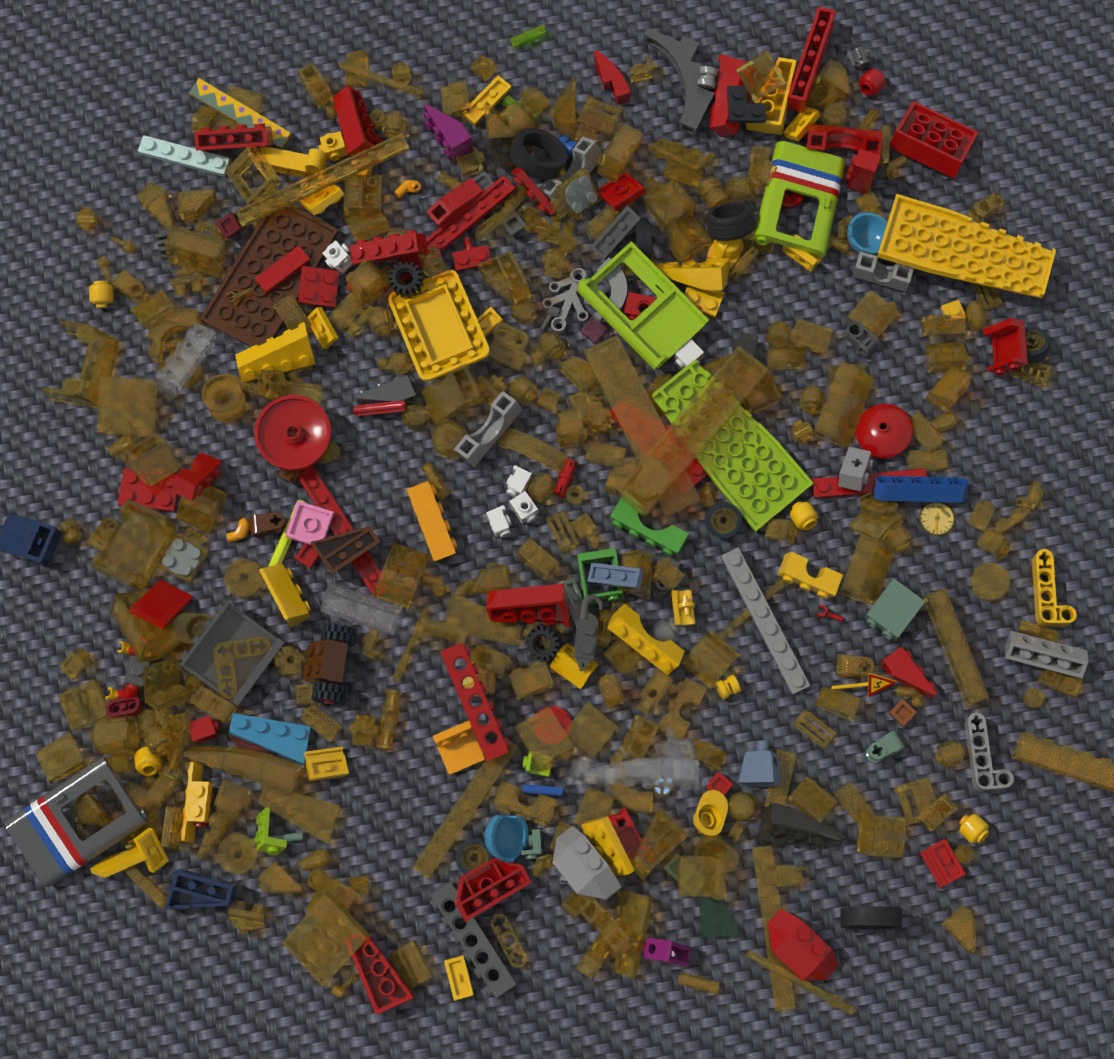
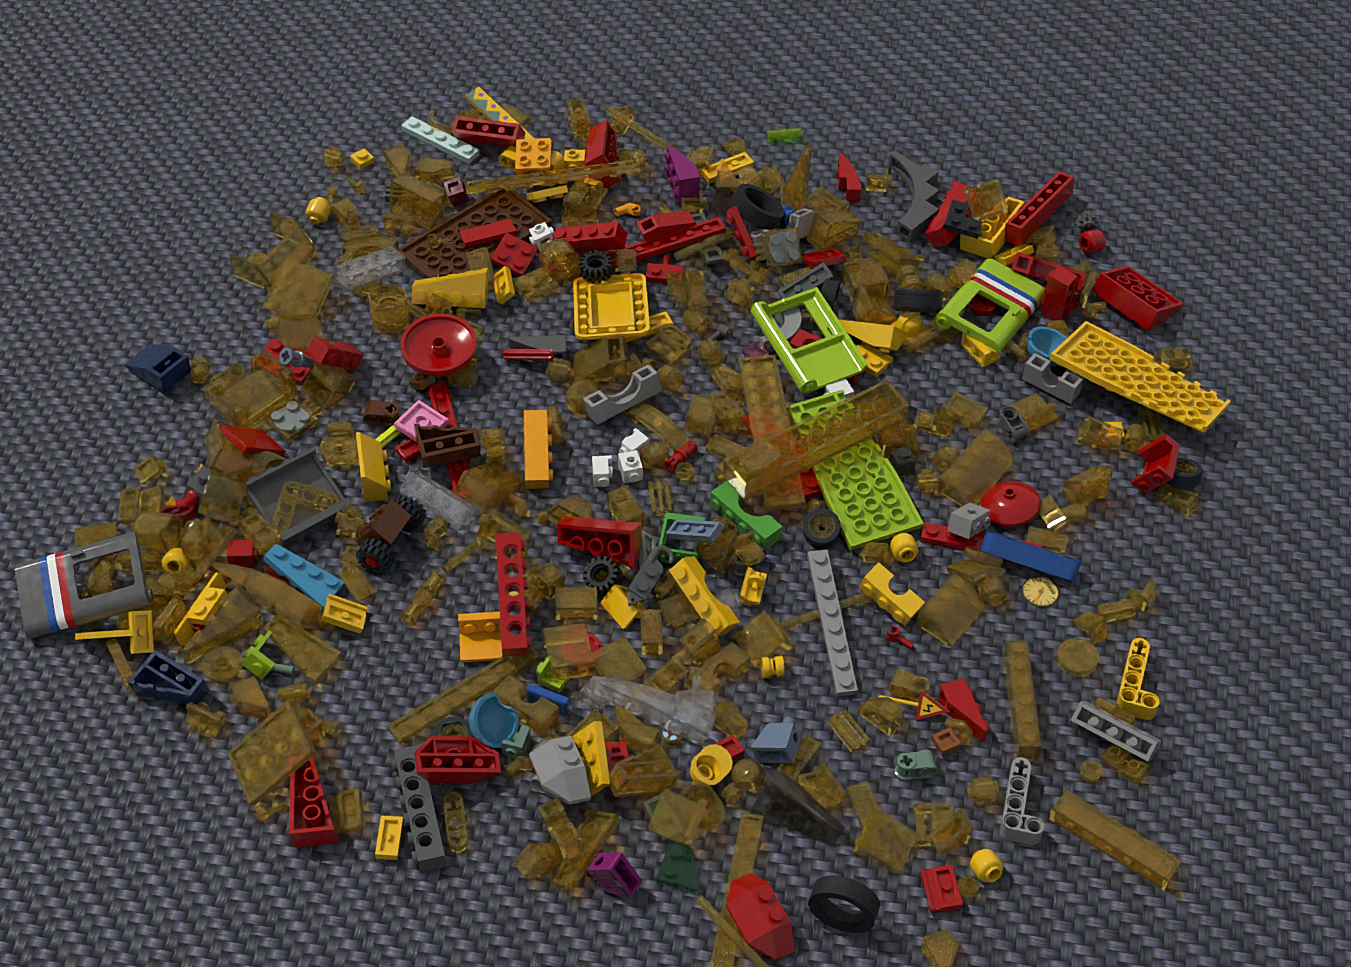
camera: 15 degrees right, 25 degrees down
(115, 207) = (362, 159): none -> yellow plate
(163, 499) = (292, 359): none -> sand blue pin
(178, 140) = (438, 125): none -> clear yellow piece
(233, 552) = (340, 427): none -> clear yellow pin
(241, 531) = (354, 415): light orange arm -> none
(242, 163) = (487, 153): clear yellow window -> none
(294, 162) = (532, 155): none -> light orange bracket
(363, 730) = (394, 596): clear yellow brick -> none
(380, 321) = (559, 293): clear yellow head -> none
(389, 533) = (492, 444): none -> clear yellow arch
(396, 363) = (559, 328): clear yellow plate -> none
(400, 69) = (659, 129): clear yellow wheel -> none
(475, 618) = (545, 547): clear yellow wing -> none
(537, 357) = (693, 358): clear yellow bush -> none
(548, 399) = (687, 393): clear yellow tile -> none
(569, 298) = (741, 324): light grey plant -> none
(573, 903) = (531, 805): clear yellow bracket -> none
(584, 528) = (682, 499): clear yellow plate -> none
(698, 983) = (637, 919): clear yellow pin -> none
(707, 77) = (936, 193): light grey wheel -> none
(772, 417) = (903, 461): none -> clear smoke brick
(778, 335) = (931, 399): clear yellow head -> none
(788, 876) = (770, 849): clear yellow plate -> none
(835, 71) = (1061, 229): clear yellow slope -> none
(894, 610) = (967, 649): sand green panel -> none
(944, 355) = (1086, 460): clear yellow slope -> none
(981, 514) = (1086, 596): clear yellow bracket -> none

